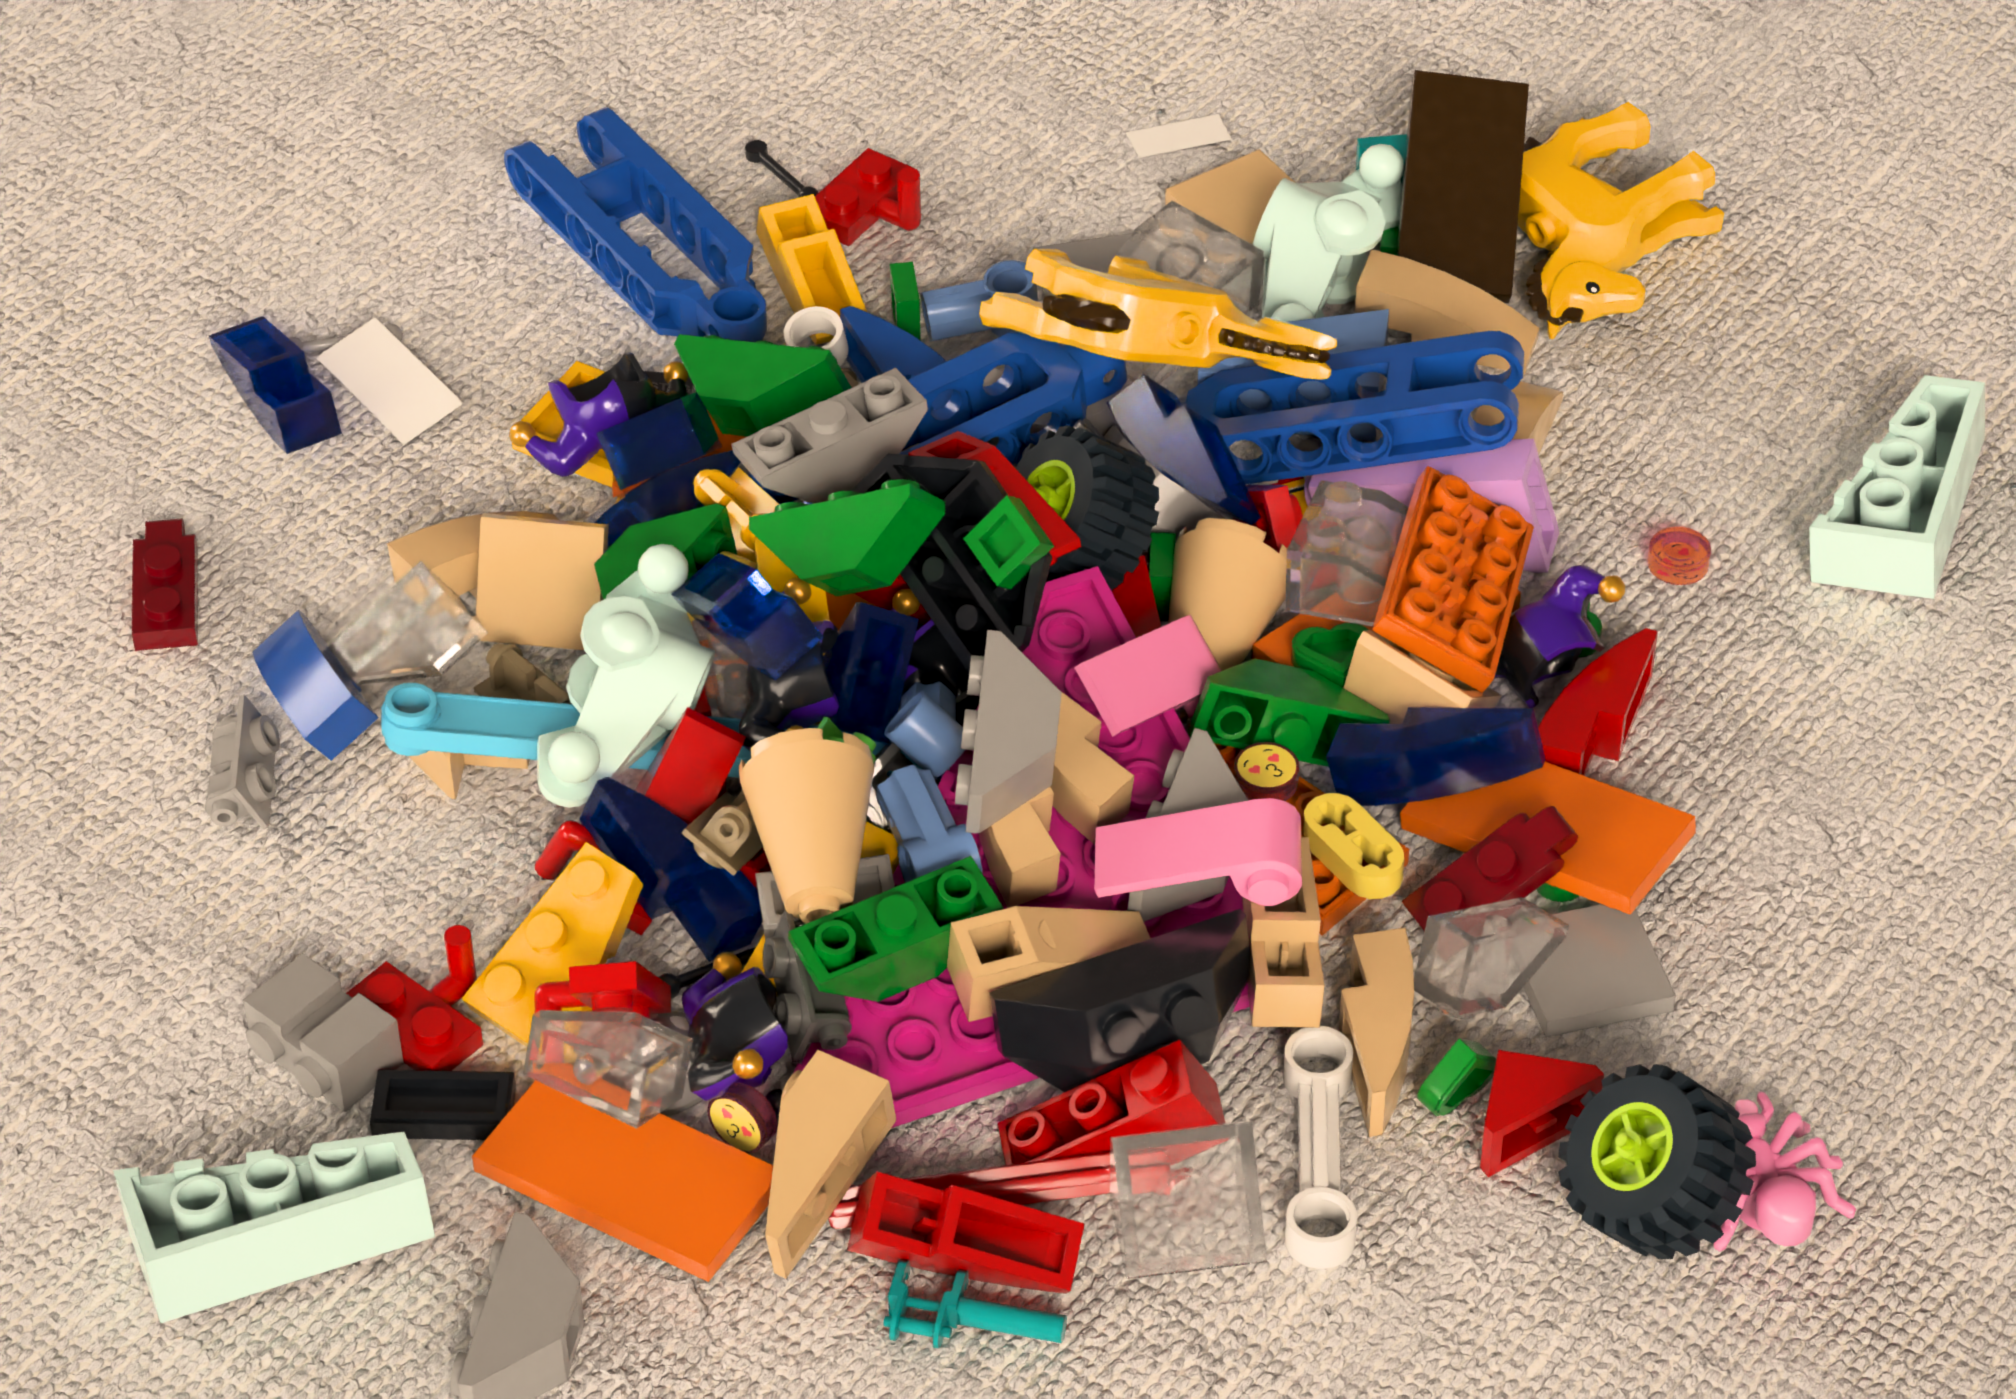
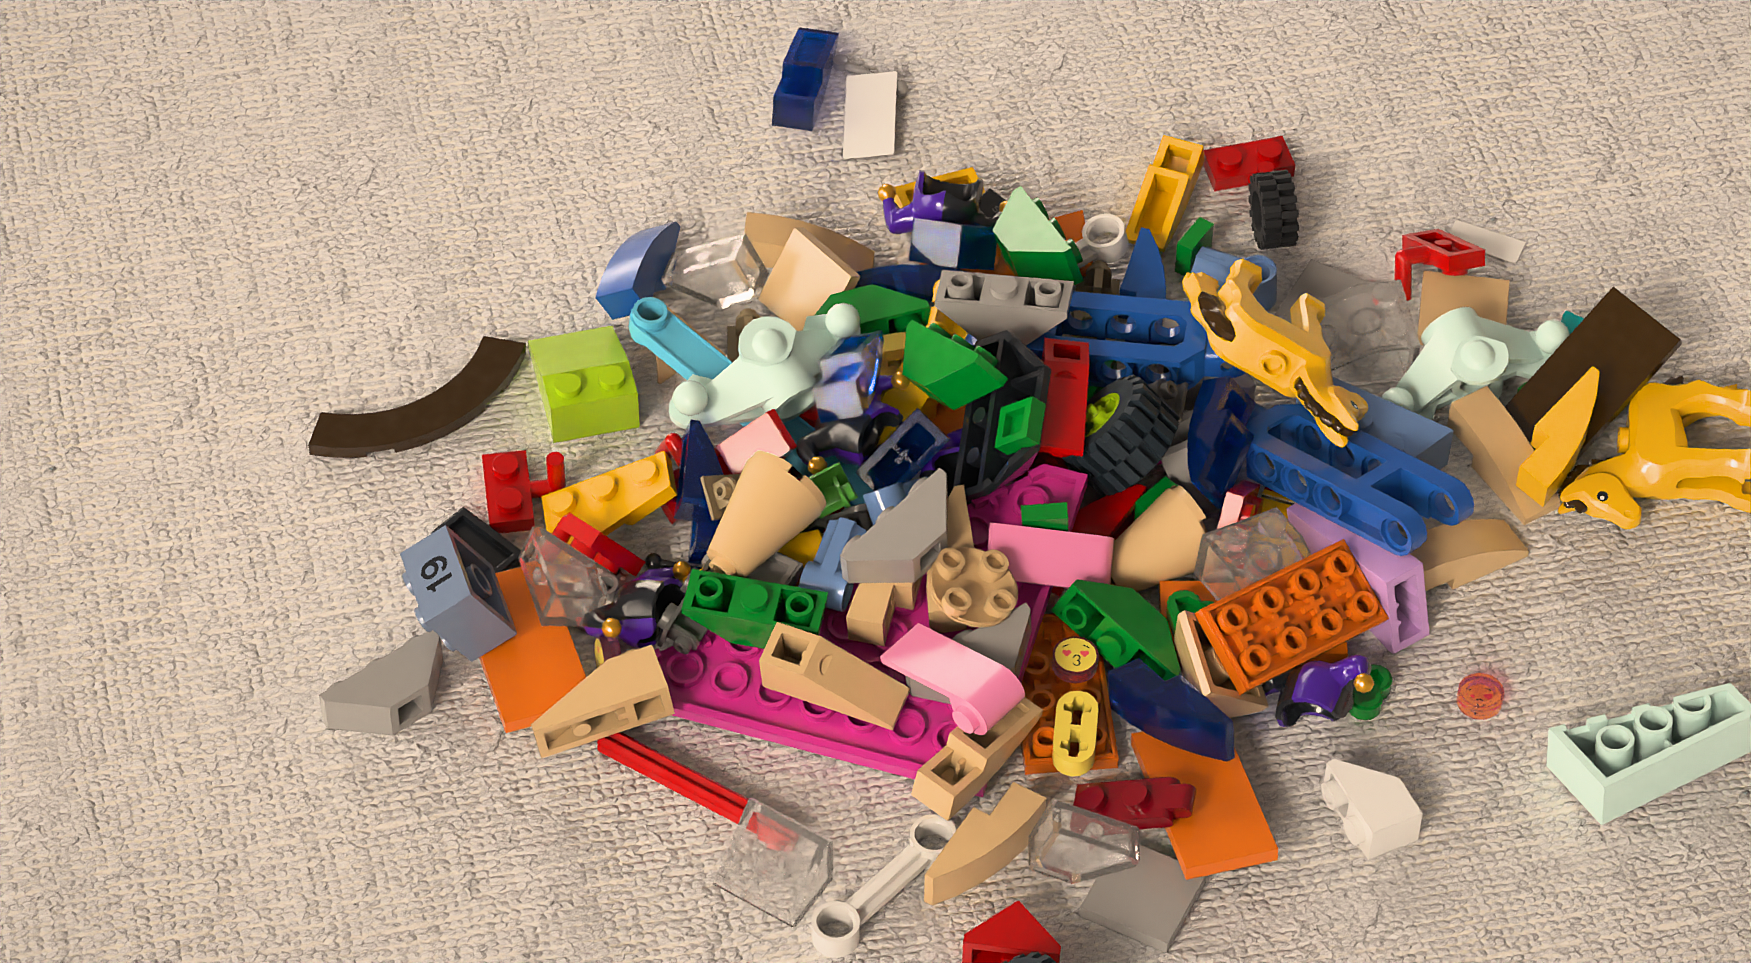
camera: 40 degrees right, 5 degrees up
(165, 587) = (634, 163): dark red hinge -> none
(211, 1016) = (427, 418): none -> dark brown tile
(243, 767) = (567, 295): light grey hinge -> none
(272, 1219) = (319, 546): light aqua wedge -> none
(321, 1032) = (453, 465): light grey brick -> none
(375, 845) = (585, 383): none -> lime slope
(521, 1149) = (457, 594): none -> sand blue brick
(631, 182) = (1103, 76): blue piece -> none
(757, 151) = (1222, 99): black hinge -> none
(955, 214) = (1273, 209): none -> black tyre
(965, 1311) = (610, 836): teal piece -> none
(966, 1232) = (646, 800): red slope -> none
(1117, 627) = (1045, 516): none -> green tile
(1126, 1003) = (848, 738): black wedge -> none
(1129, 742) = (973, 586): none -> tan dish
(1143, 1096) = (805, 793): red slope -> none
(1151, 162) = (1436, 249): none -> red plate
(1457, 1076) = (992, 898): green tile -> none
(1506, 252) = (1558, 440): none -> yellow slope
(1599, 705) = (1305, 749): red slope -> none
(1712, 723) = (1373, 806): none -> white slope

